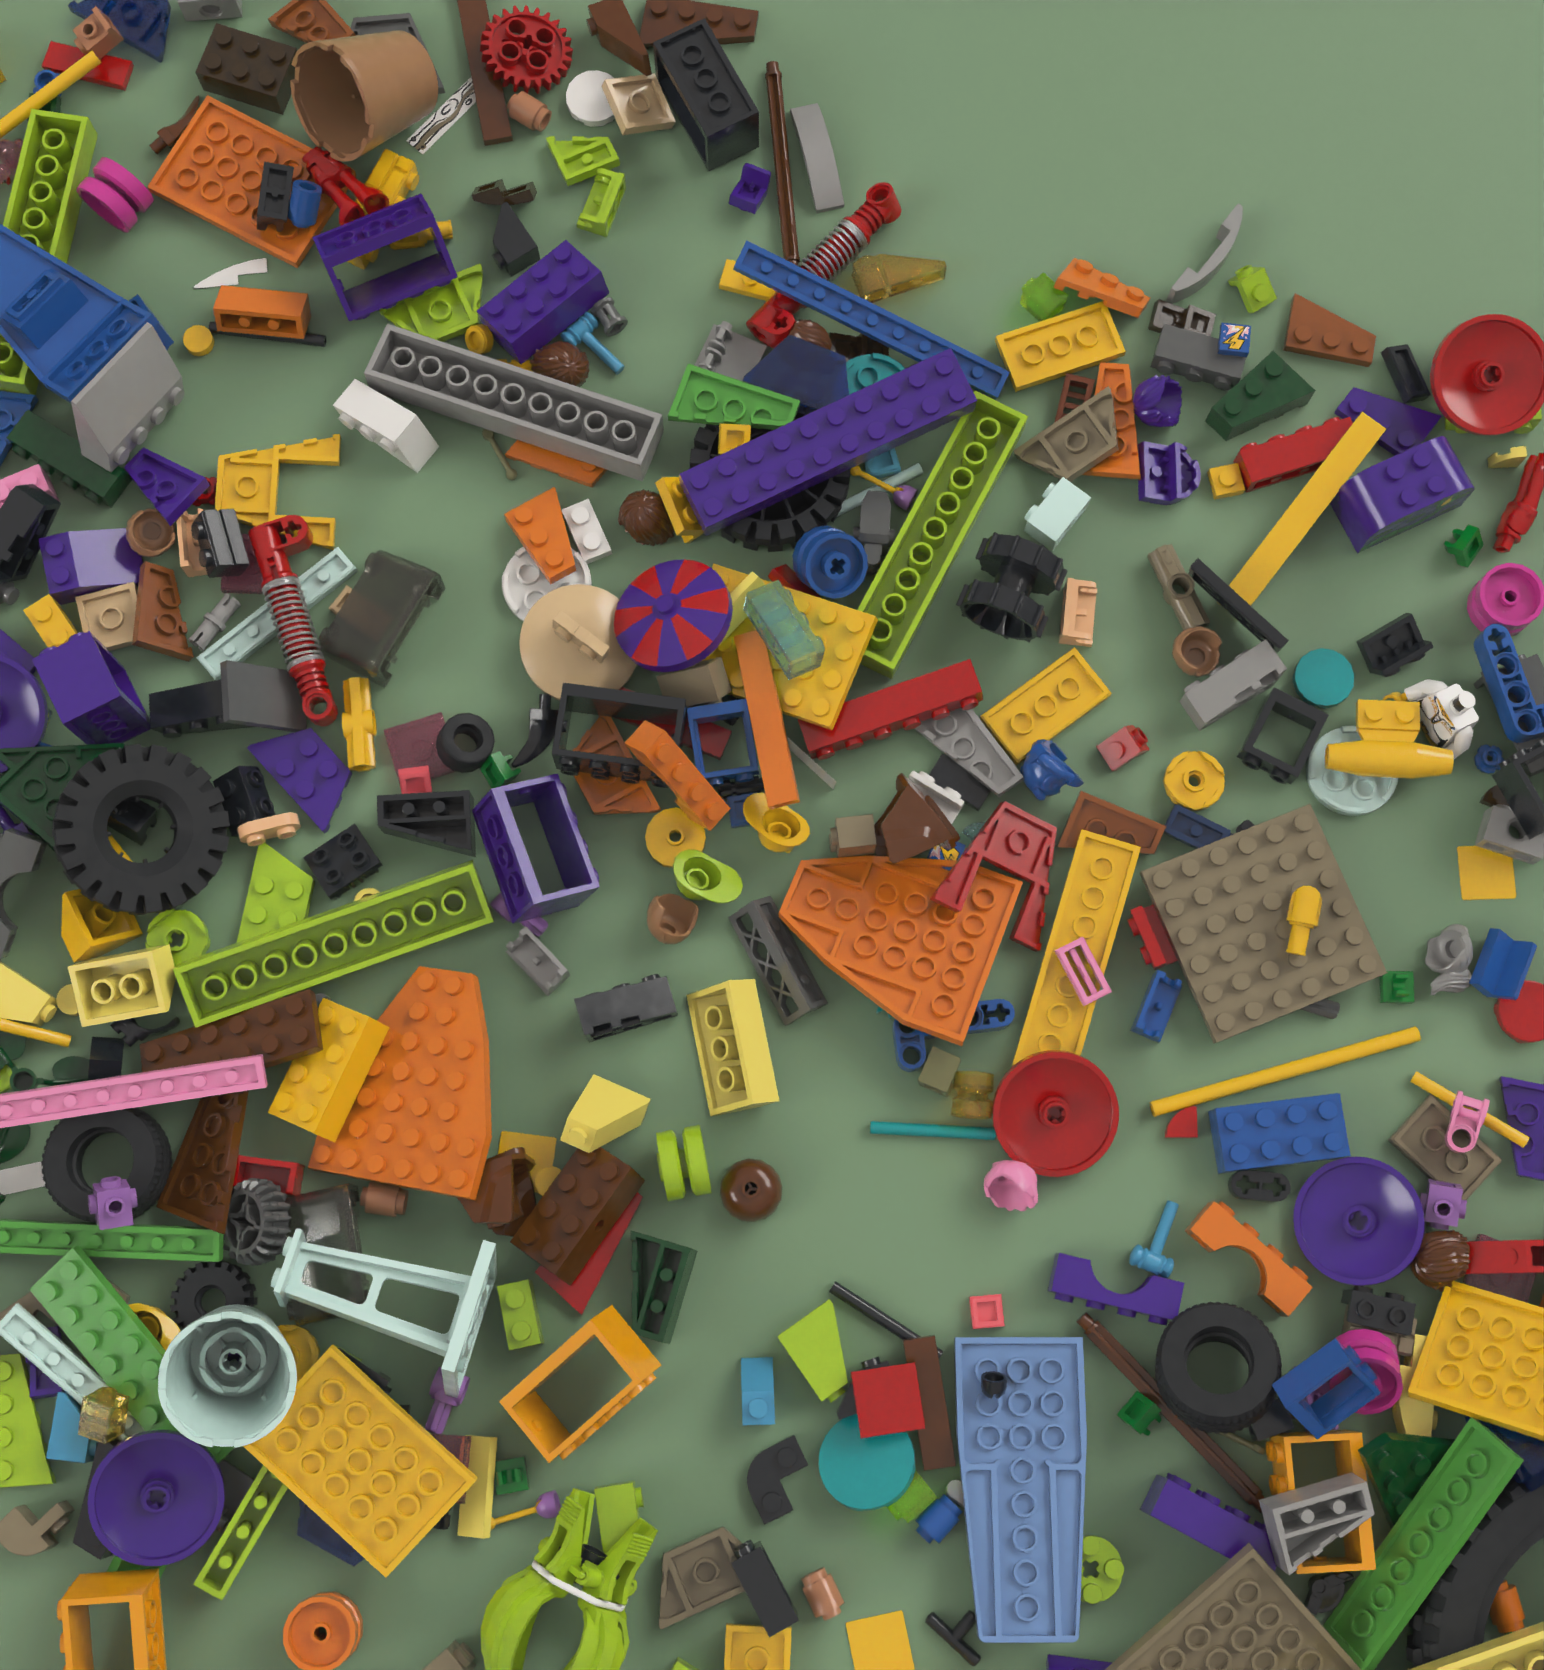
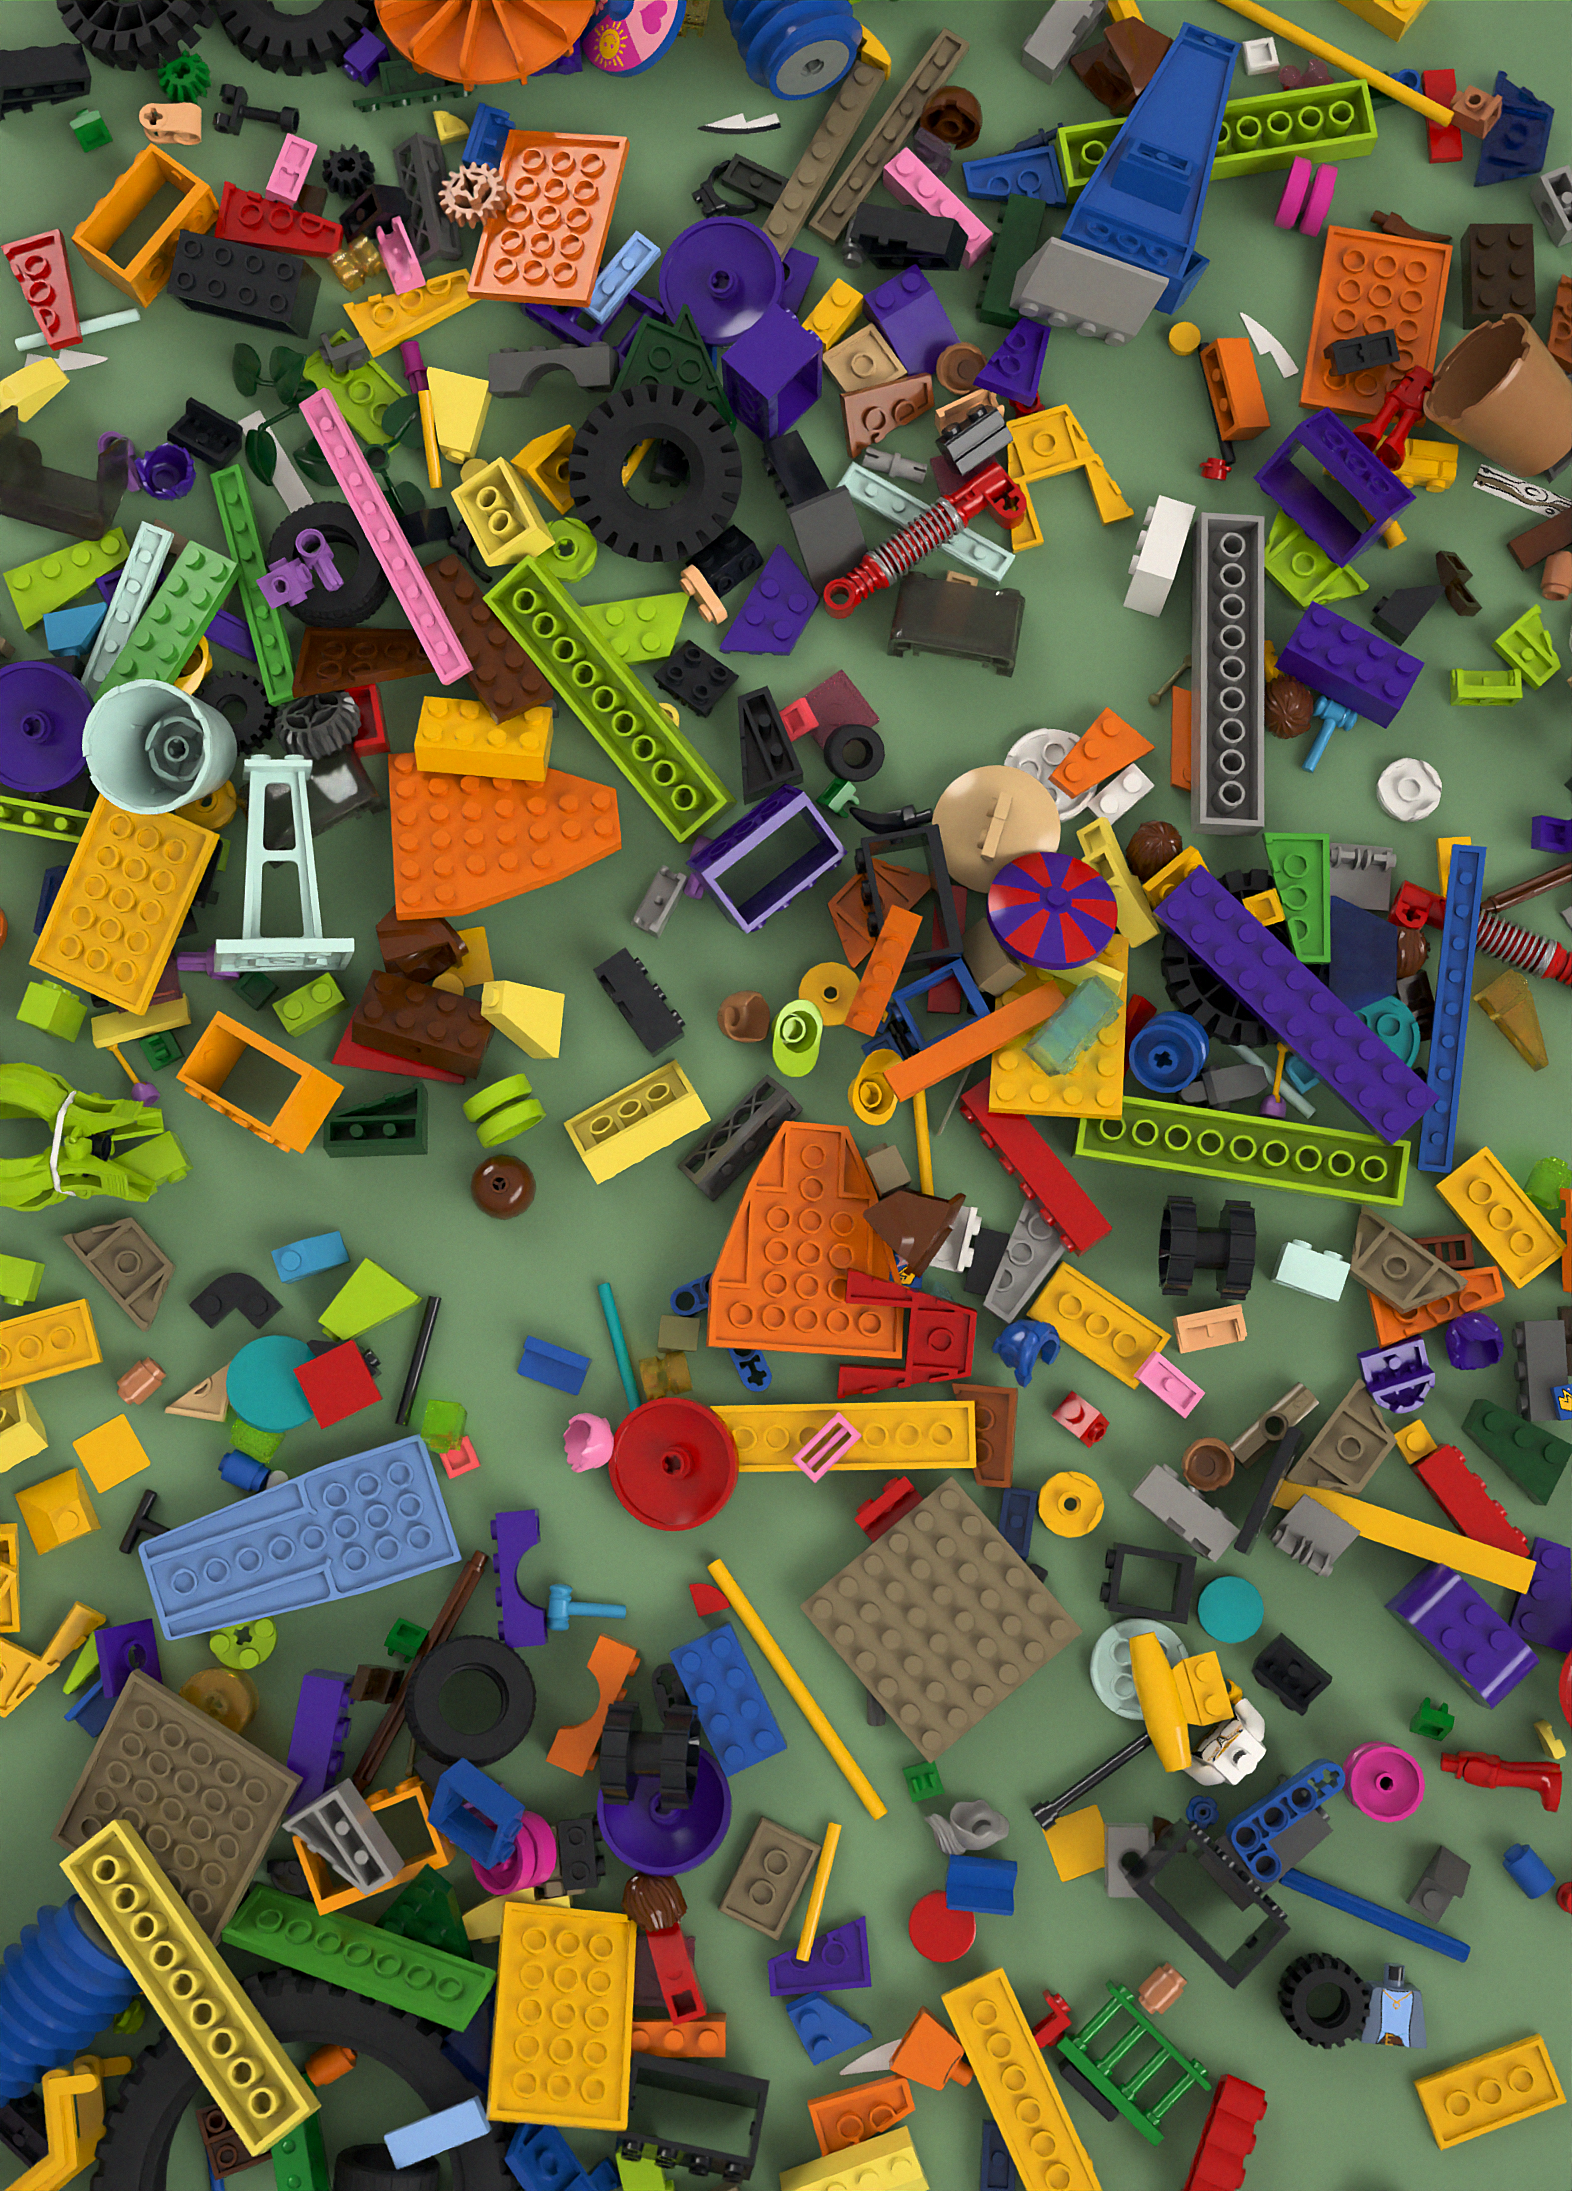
camera: 75 degrees right, 5 degrees up
(103, 1164) = (320, 560): none -> medium lavender axle
(103, 1415) = (95, 651): clear yellow brick -> none
(138, 1277) = (232, 635): none -> dark purple tile
(304, 203) = (1365, 385): blue brick -> none
(326, 353) = (1215, 469): none -> red plate
(359, 724) = (839, 643): yellow piece -> none
(384, 1199) = (378, 837): nougat brick -> none
(440, 1566) = (52, 1010): none -> lime brick
(479, 339) = (1286, 615): yellow tile -> none
(485, 1365) = (255, 989): none -> dark green plate
(613, 325) = (1360, 737): dark grey bush -> none
(635, 559) = (1106, 857): none -> light yellow slope
(668, 294) = (1409, 790): none -> white tile
(763, 1587) = (124, 1320): black window -> none
(840, 802) = (923, 1143): none -> yellow piece
(859, 1534) = (205, 1400): none -> tan tile
(930, 1196) = (553, 1365): none -> blue panel
(936, 1437) = (323, 1444): reddish brown tile -> none
(955, 1314) = (443, 1426): none -> clear neon green brick
(993, 1383) = (386, 1483): black hinge -> none
(1117, 661) = (1169, 1384): none -> bright pink plate
(1134, 1598) = (233, 1690): none -> clear yellow wheel
(1156, 1006) = (819, 1536): blue hinge -> none
(1174, 1452) = (376, 1683): none -> dark brown slope
(1215, 533) = (1346, 1447): none -> dark tan wing
(1283, 586) = (1313, 1535): none -> light grey hinge
(1302, 915) = (955, 1656): yellow arm -> none
(1314, 1213) = (635, 1753): none -> black piece
(1443, 1192) = (710, 1888): medium lavender brick -> none
(1454, 887) = (1048, 1811): none -> black piece
(1466, 1120) = (802, 1888): bright pink piece -> none

